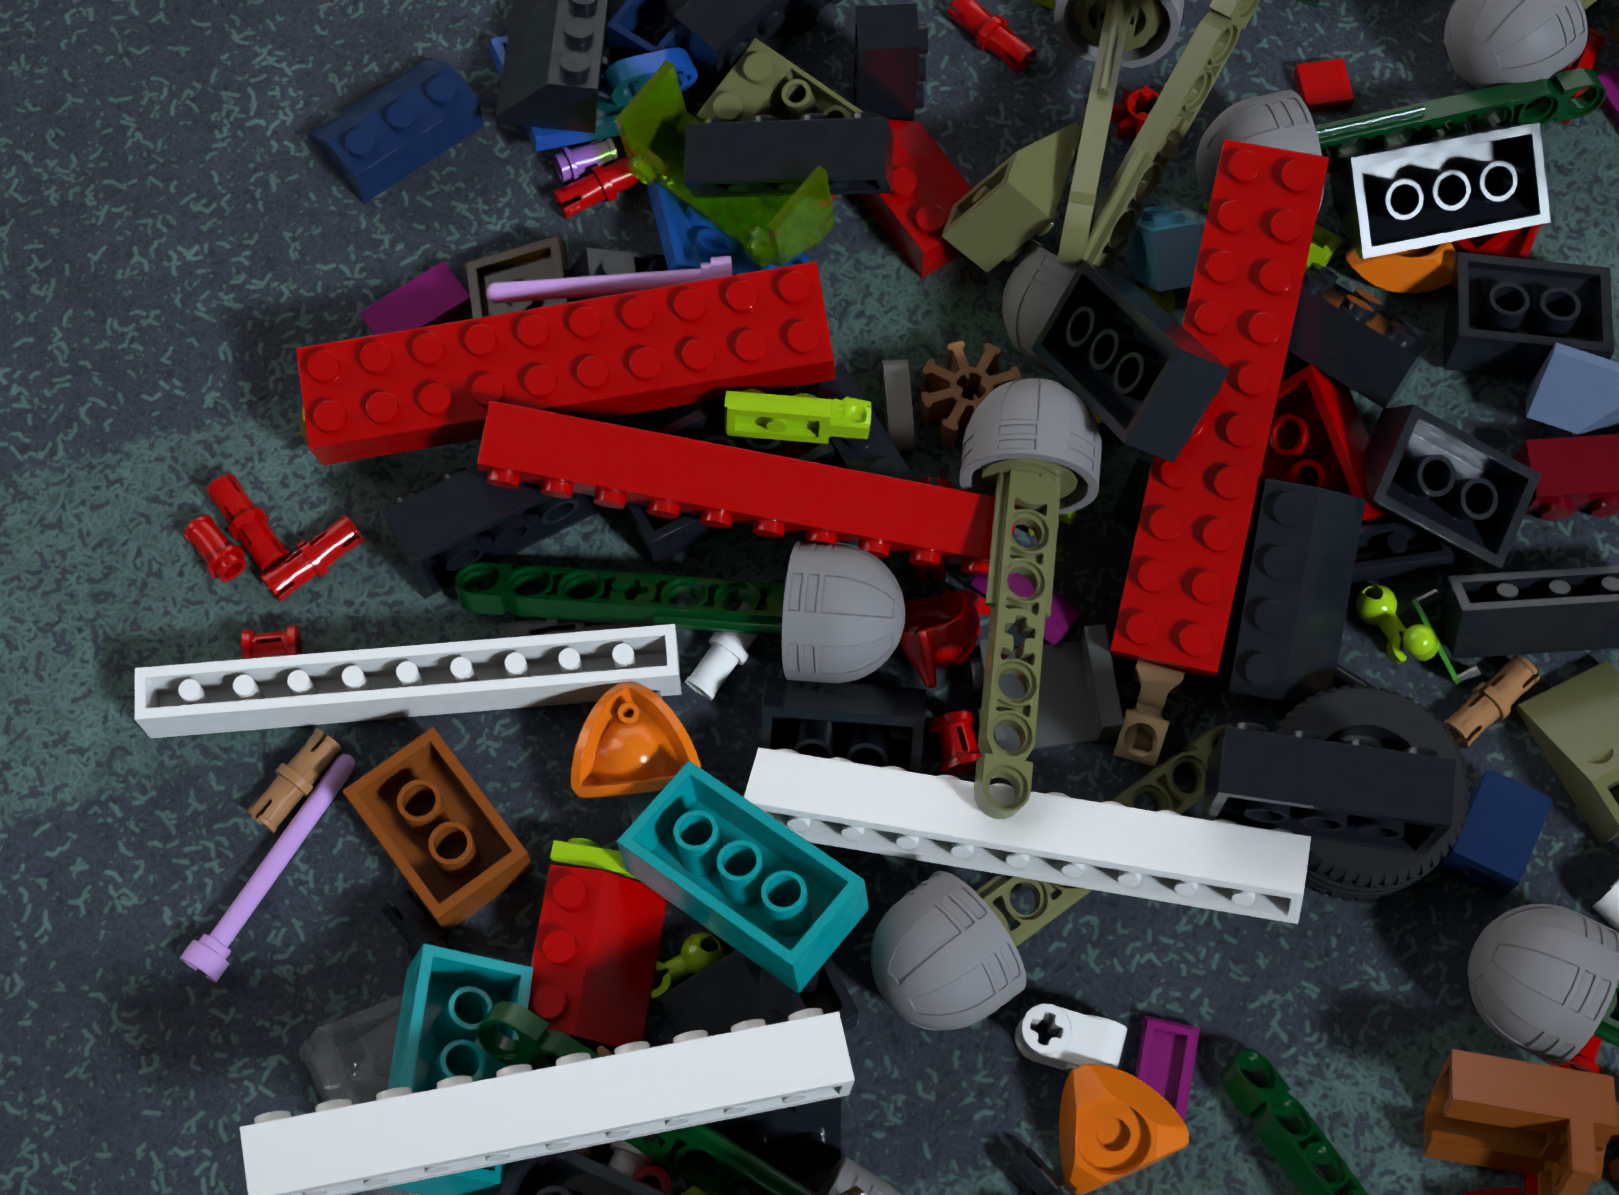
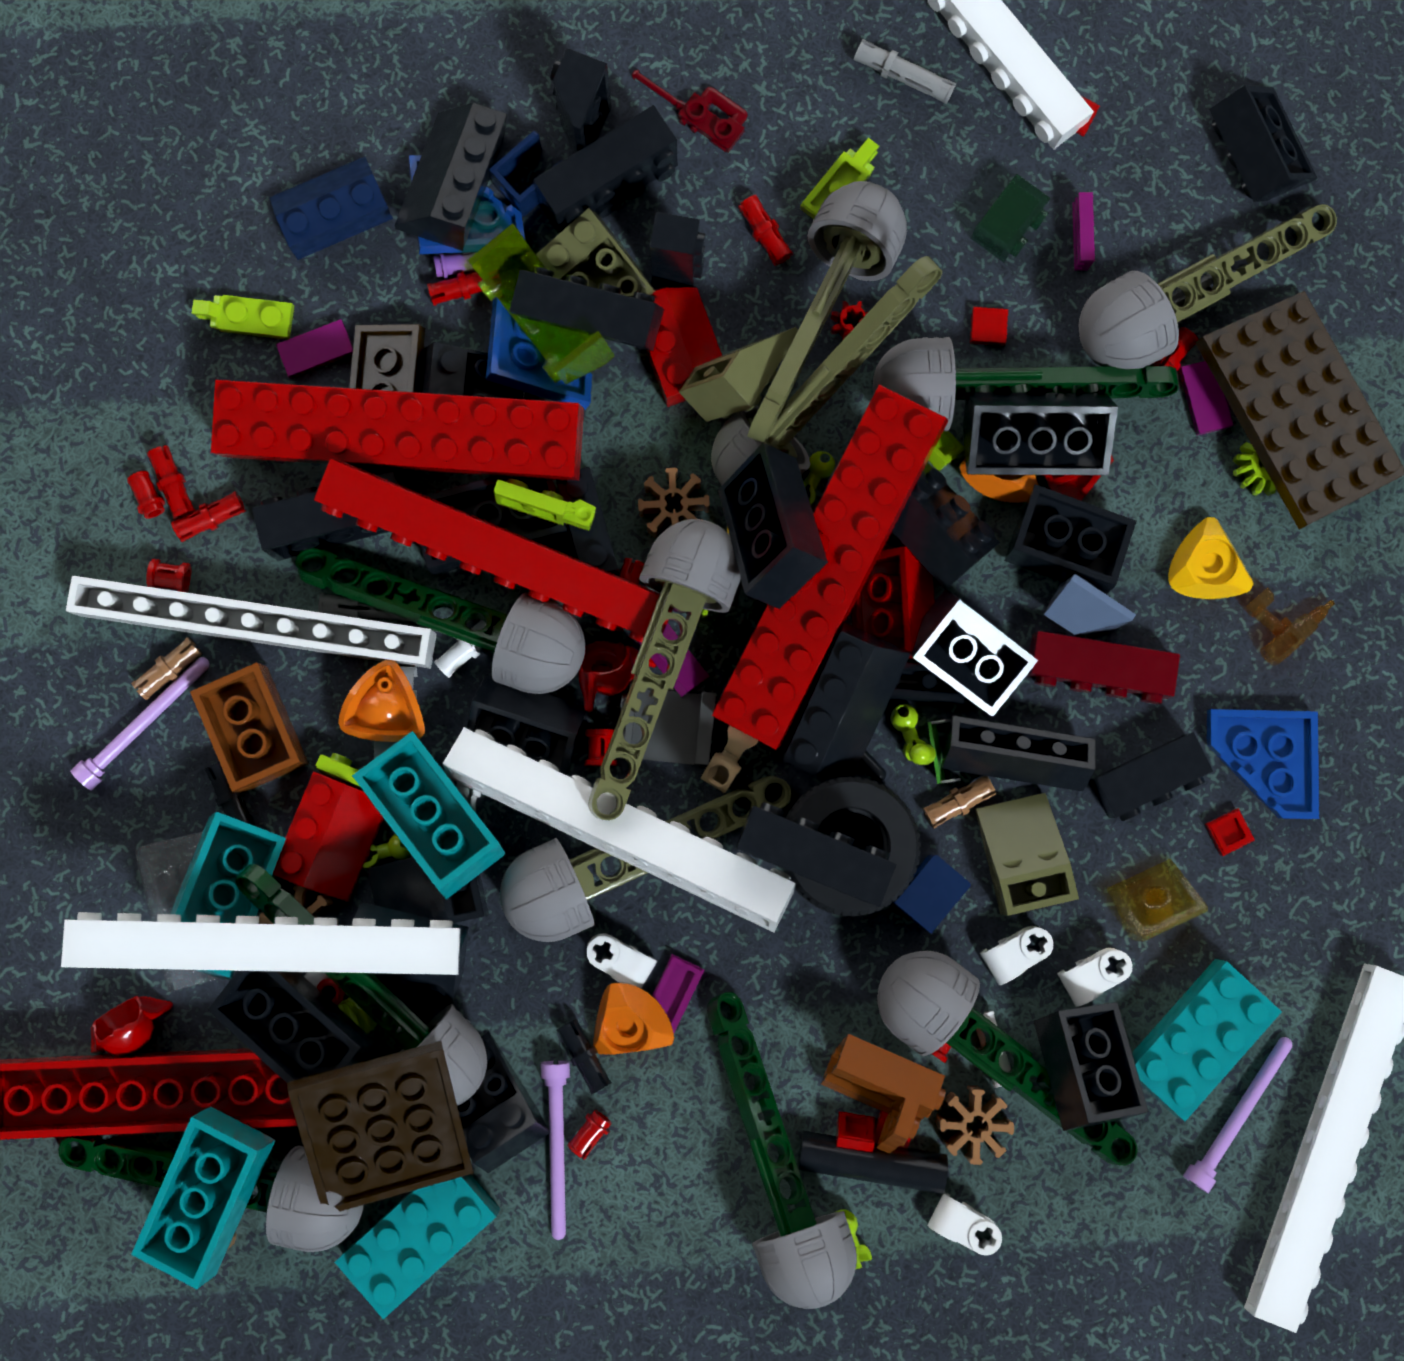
camera: 10 degrees right, 15 degrees up
(308, 286) = (247, 316): none -> lime hinge
(604, 284) = (511, 387): lavender piece -> none
(630, 74) = (522, 213): blue beam -> none
(898, 403) = (623, 500): light grey beam -> none
(1164, 248) = (832, 432): medium azure brick -> none

